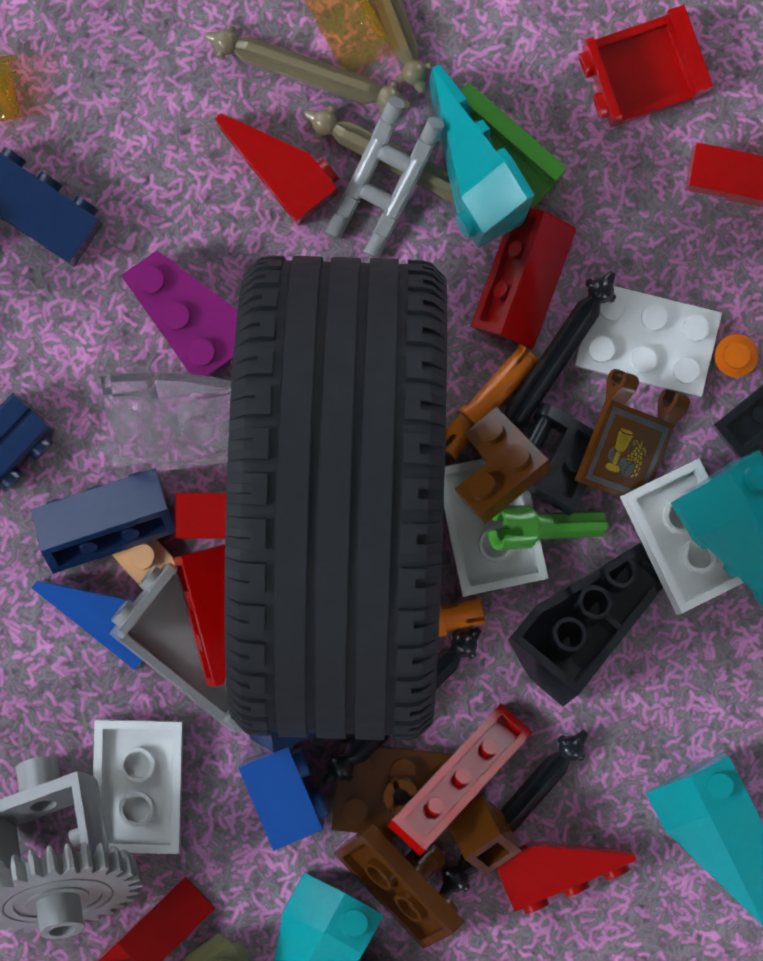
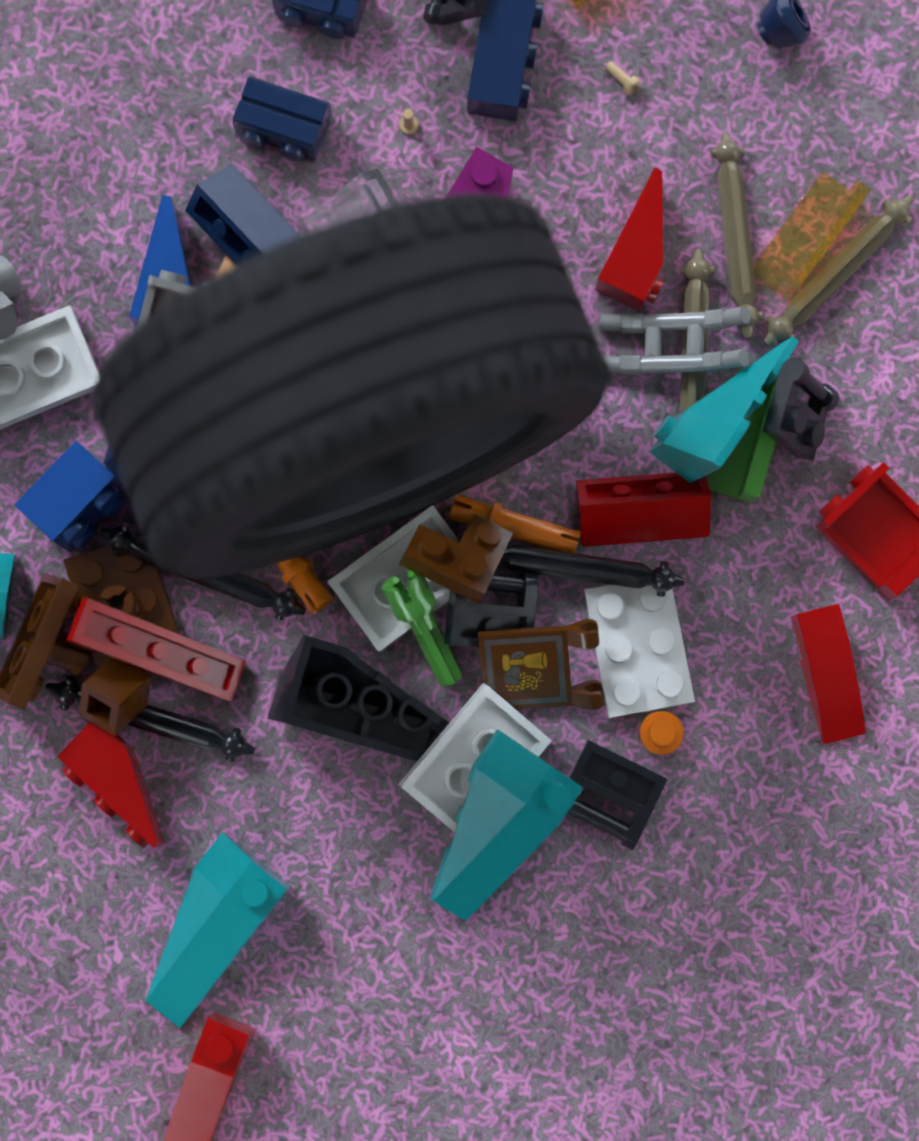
camera: 65 degrees right, 5 degrees down
(60, 326) = (409, 123): none -> tan piece
(118, 101) = (630, 84): none -> tan piece
(513, 103) = (789, 419): none -> black plate

